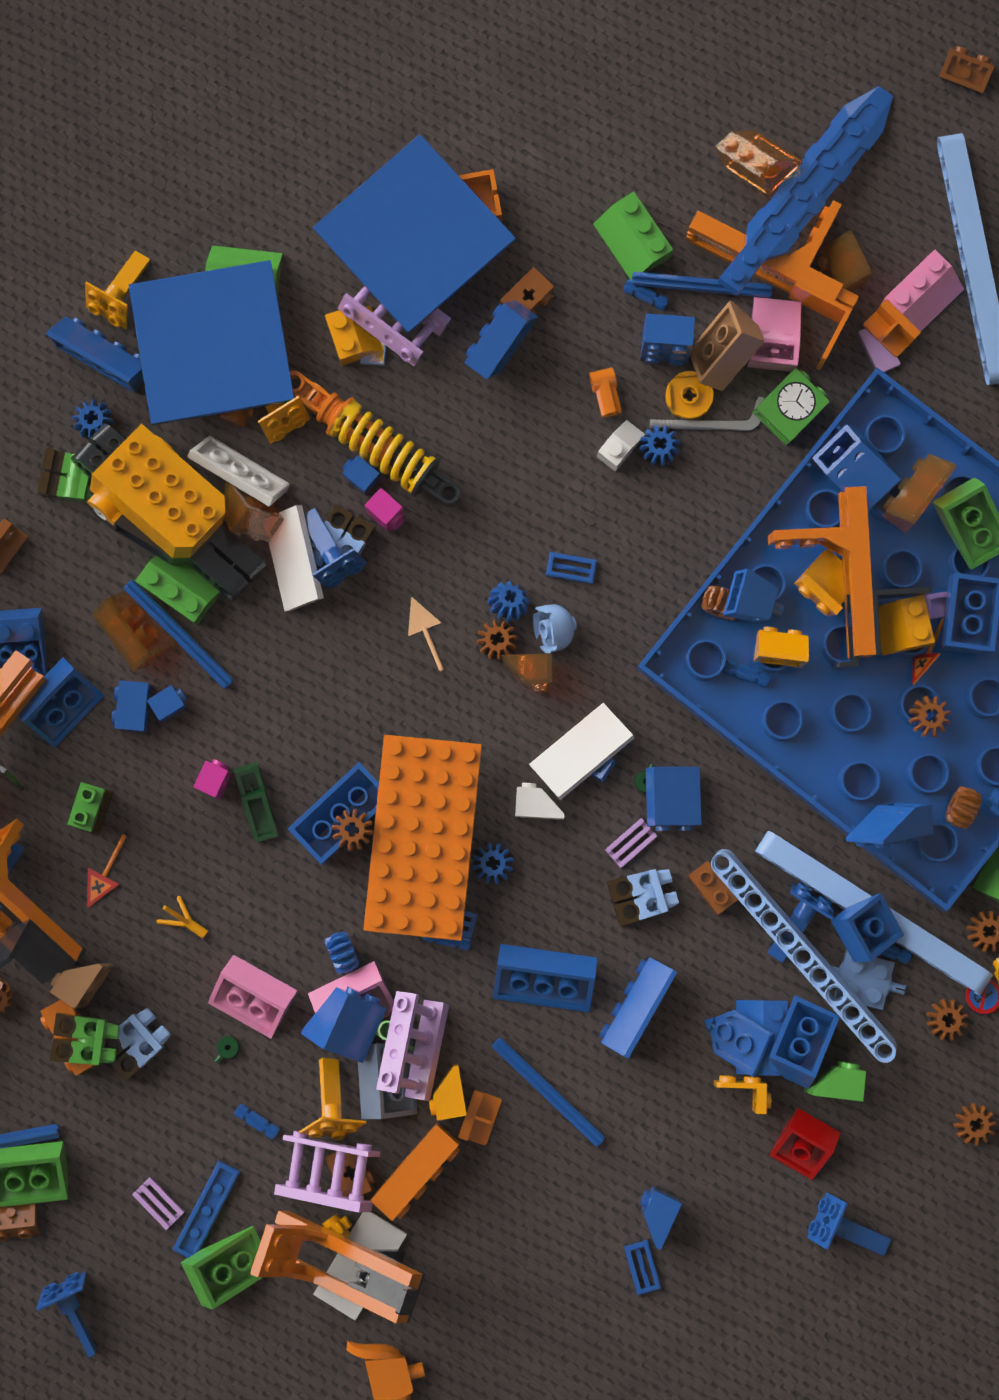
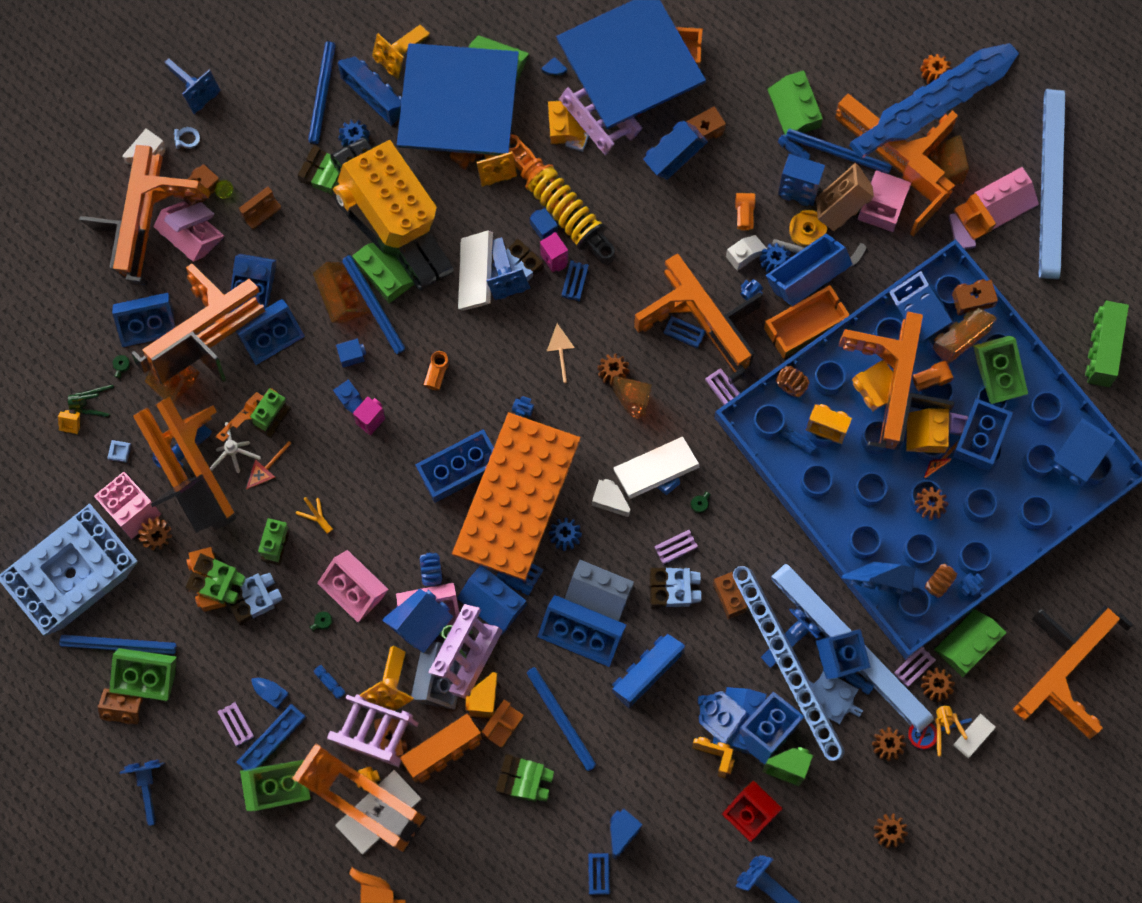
camera: 15 degrees right, 10 degrees down
(36, 372) = (321, 94): none -> blue axle
(55, 867) = (231, 448): none -> white plant
(56, 821) = (241, 417): none -> orange piece
(80, 984) = (226, 536): medium nougat slope -> none
(132, 706) = (323, 348): blue brick -> none
(139, 969) = (273, 540): none -> bright green hips
(182, 759) = (348, 396): none -> blue plate
(187, 1151) = (269, 691): none -> blue plate
(238, 470) = (452, 197): white tile -> none
(249, 515) = (452, 228): clear orange slope -> none
(256, 802) = (396, 442): dark green slope -> none
(280, 701) = (436, 372): none -> orange piece
(319, 264) = (554, 67): none -> blue tile
(346, 835) = (472, 479): dark orange gear -> none
(399, 719) = (523, 407): none -> blue gear
(419, 517) = (578, 266): none -> blue tile
(425, 969) = (496, 600): none -> blue slope
(508, 601) = (629, 343): blue gear -> none
(530, 1182) = (530, 779): none -> bright green hips
(552, 923) = (599, 590): none -> sand blue slope
(554, 626) = (660, 369): light blue cylinder -> none
(570, 524) = (691, 297): none -> orange piece
(640, 495) = (750, 289): none -> blue gear
(658, 632) = (714, 376): none -> lavender tile
(673, 797) = (717, 519): blue brick -> none
(706, 452) = (809, 269): none -> blue piece
(718, 518) = (805, 321): none -> orange piece
(752, 598) = (816, 380): blue torso -> none
(757, 159) = (902, 70): clear orange slope -> none
(791, 406) = (883, 254): bright green brick -> none
(803, 139) = (930, 64): none -> orange gear
(896, 551) = (937, 374): none -> orange piece
(933, 437) = (965, 302): none -> dark orange brick
(964, 897) = (902, 677): none -> lavender tile
(967, 69) = (1079, 47): dark orange bracket -> none

